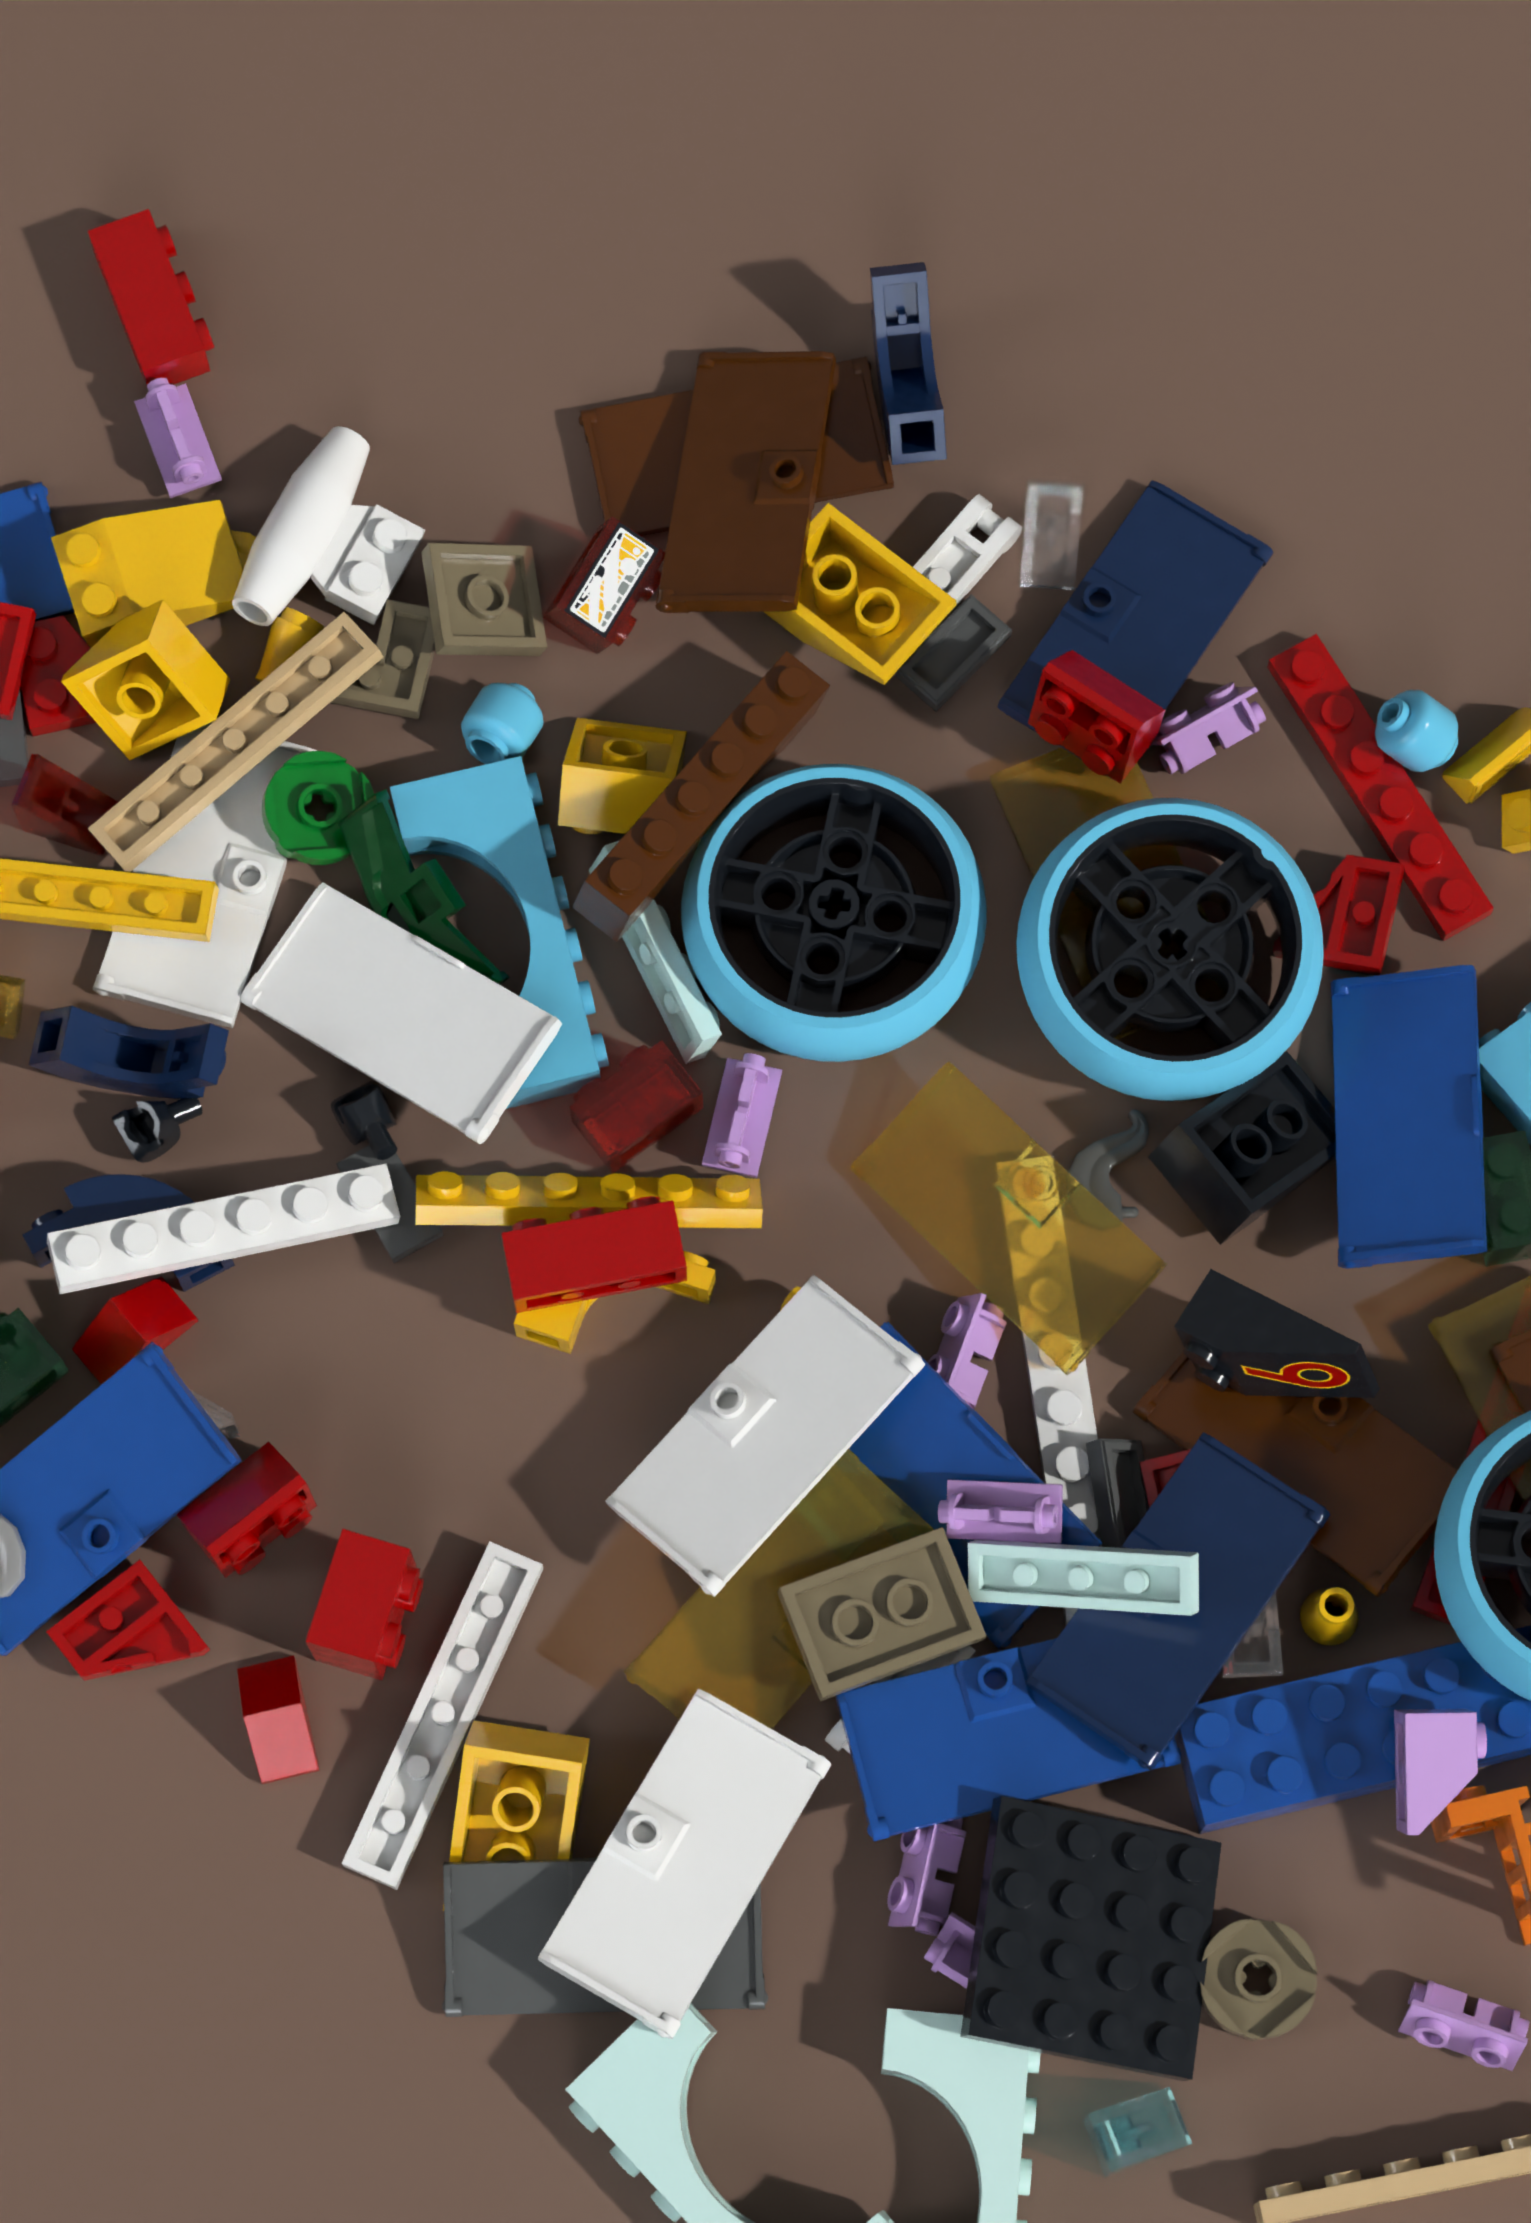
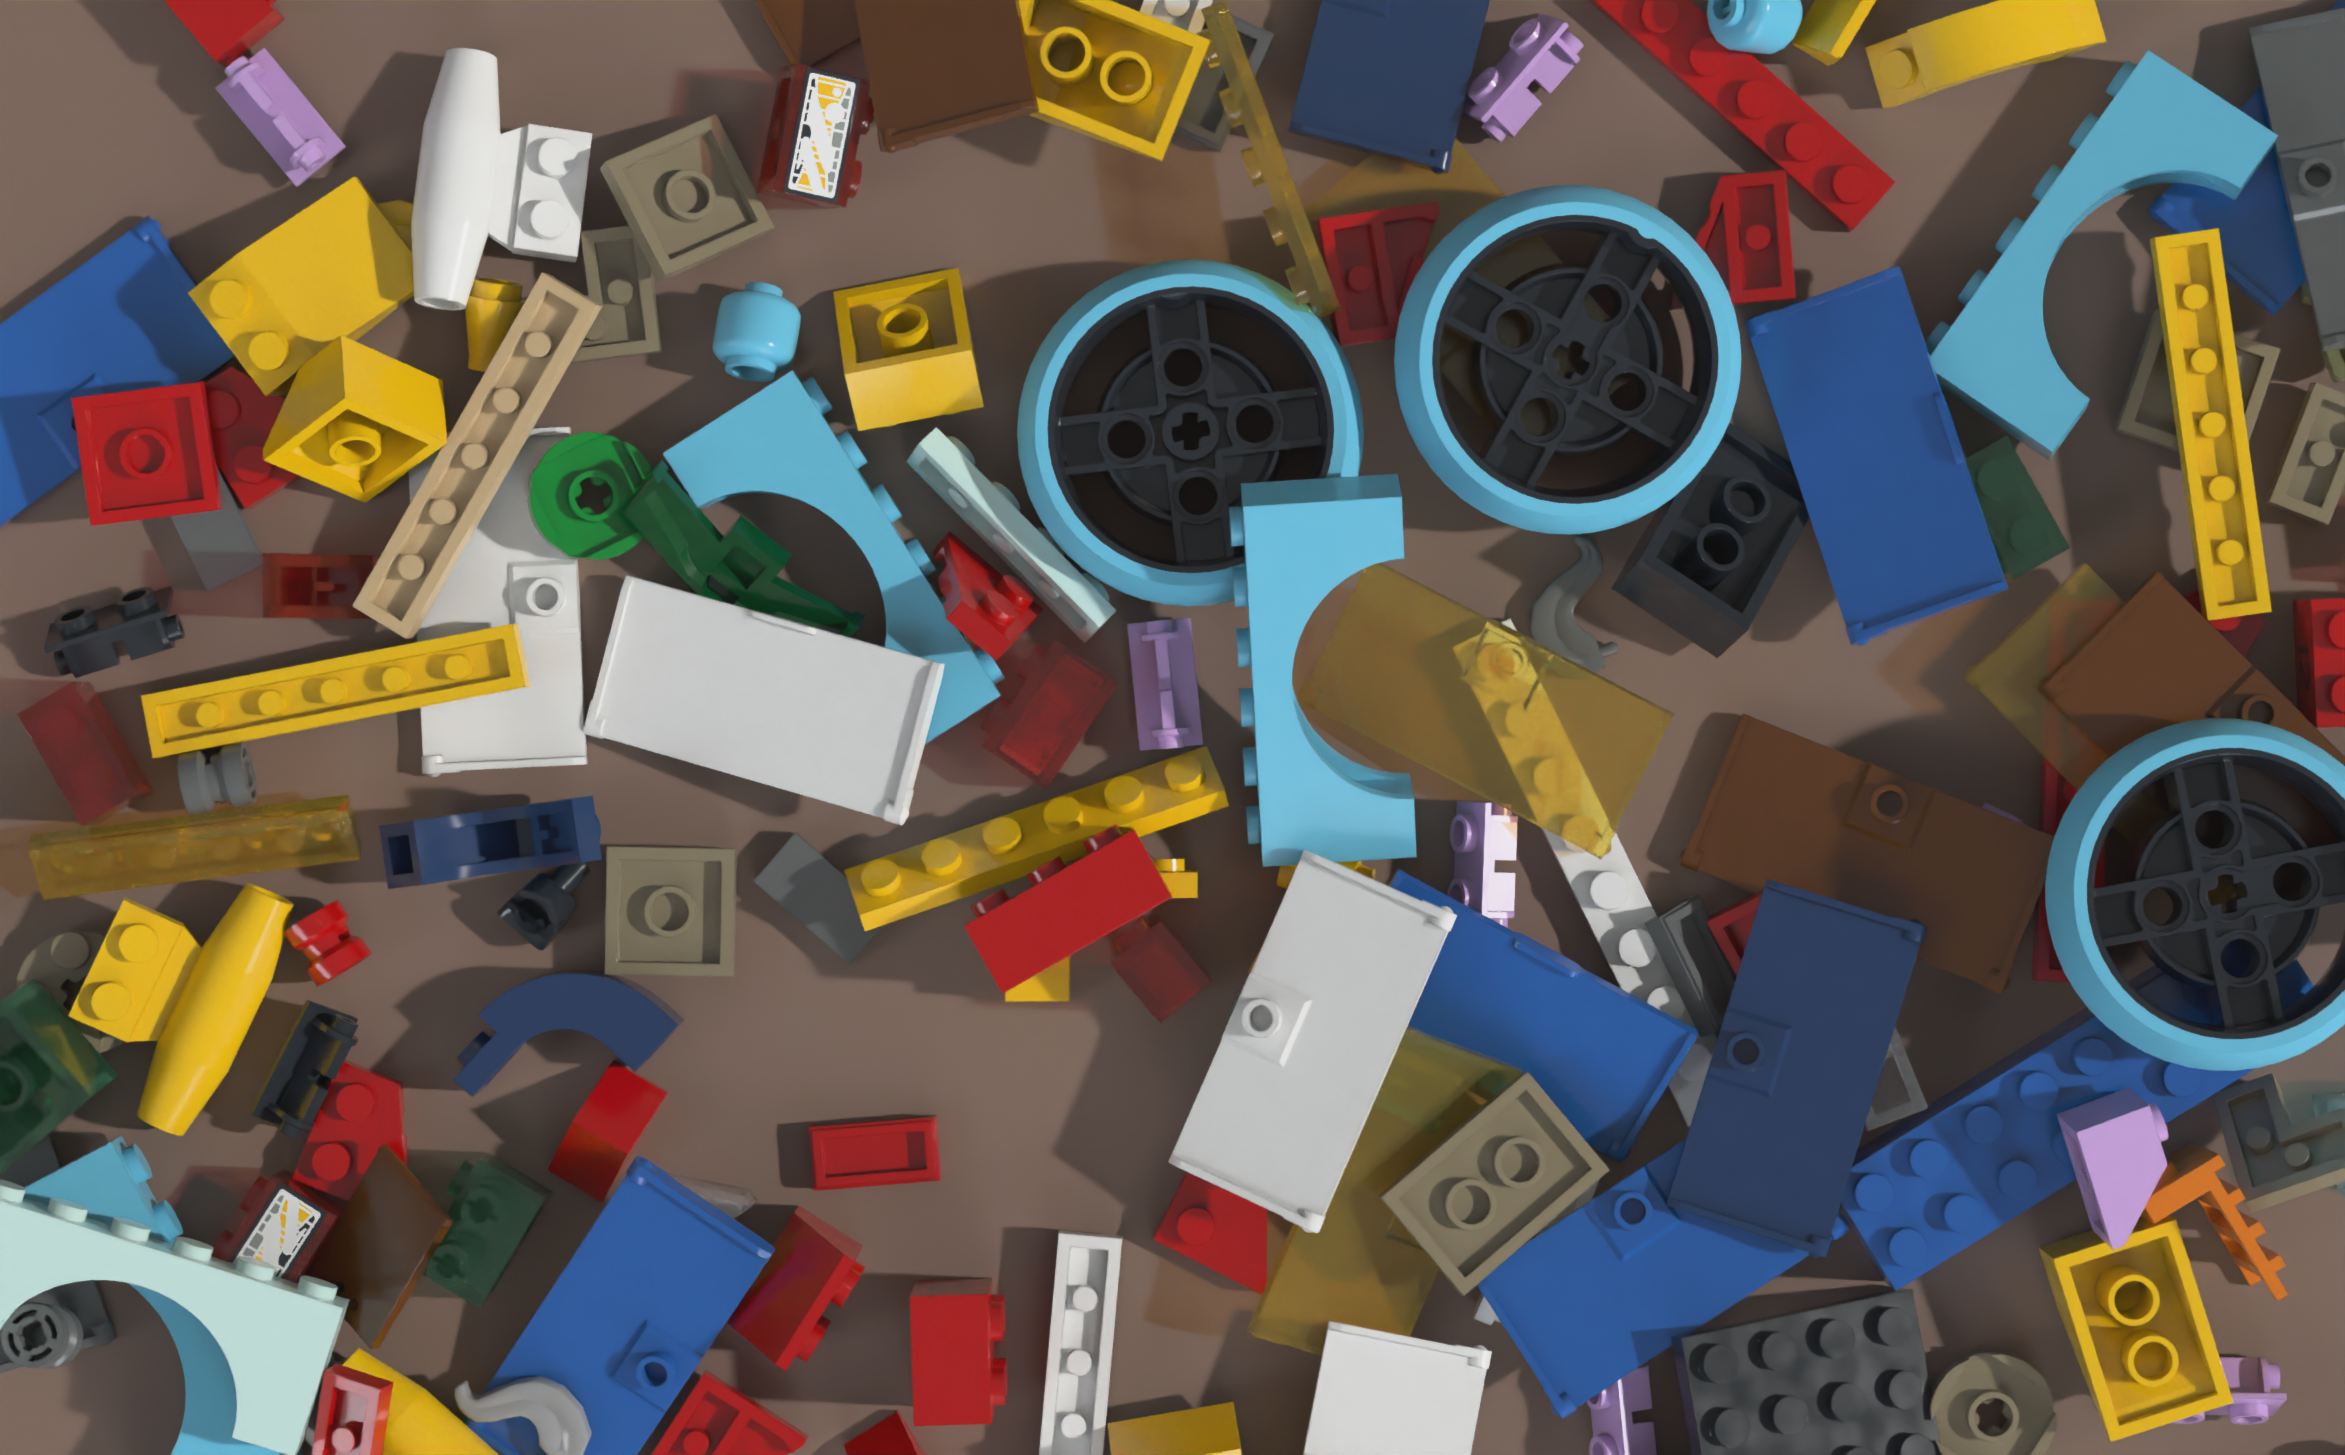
camera: 20 degrees left, 15 degrees up
(222, 1228) = (663, 1005): white plate -> none
(255, 1150) = (670, 911): none -> dark tan plate
(356, 1427) = (875, 1153): none -> red tile
(366, 1116) = (767, 820): black piece -> none
(613, 994) = (982, 601): none -> red wing
(630, 1584) = (1217, 1231): none -> red wing
(655, 1336) = (1157, 966): none -> clear red brick
(698, 795) = (1006, 354): reddish brown arch -> none
(885, 1010) = (1296, 549): none -> medium azure arch
(970, 716) = (1267, 162): none -> clear yellow plate
(1002, 1511) = (1584, 1033): lavender hinge -> none
(1026, 827) = (1373, 267): none -> red wing
(1084, 1577) = (1694, 1083): light aqua plate -> none
(1094, 715) = (1403, 120): red slope -> none
(1268, 1348) = (1796, 775): black slope -> none
(1320, 1624) = (1937, 1010): yellow cone -> none
(1412, 1930) = (2137, 1327): none -> yellow slope

